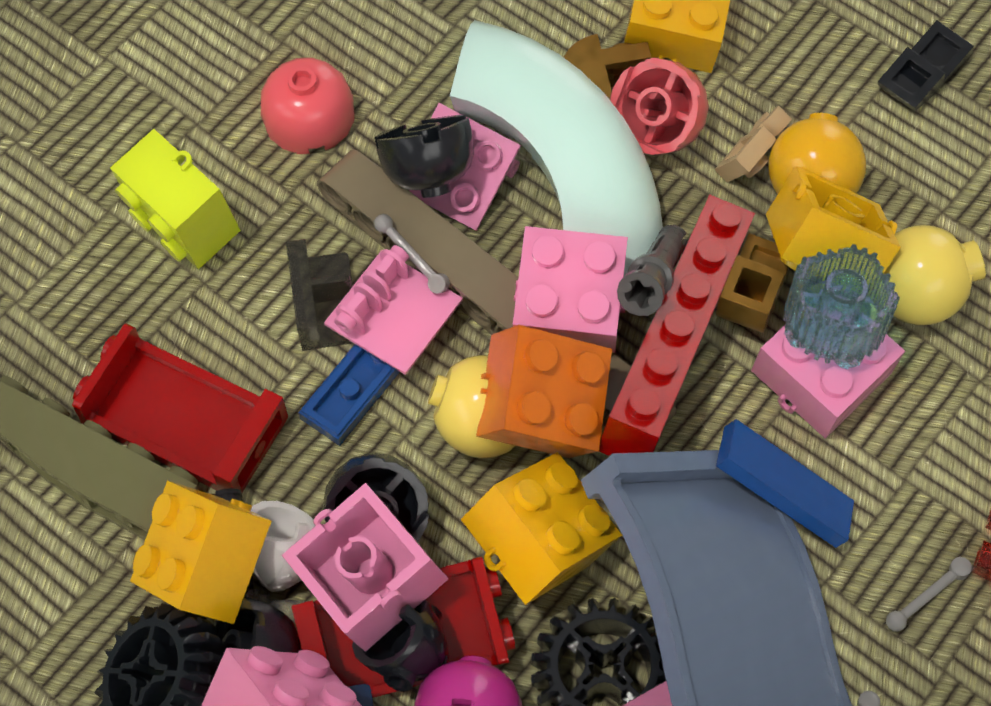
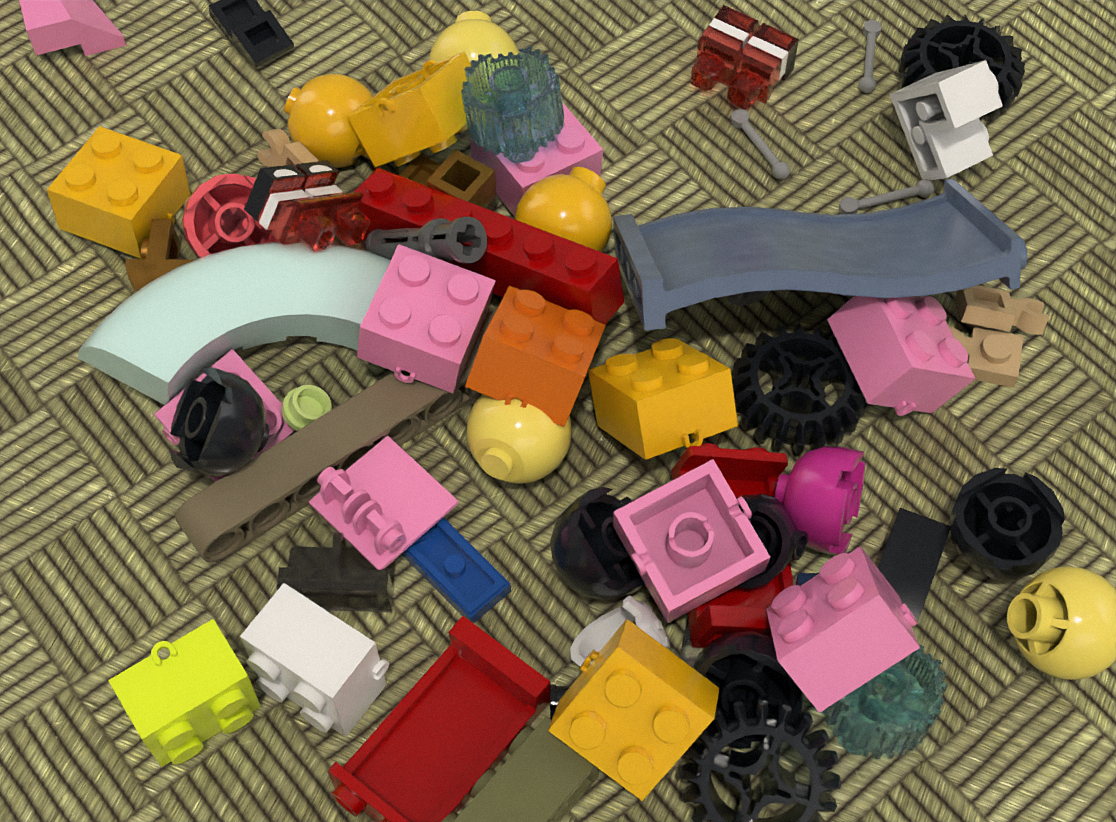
camera: 80 degrees left, 5 degrees down
(220, 287) = (314, 661): none -> white brick
(306, 105) = (96, 557): coral cylinder -> none
(436, 282) = (366, 450): light grey hinge -> none
(485, 226) = (304, 406): none -> yellowish green plate
(679, 157) = (306, 206): none -> clear red hips
(739, 387) = (569, 207): none -> yellow brick
(785, 483) = (653, 205): blue tile -> none

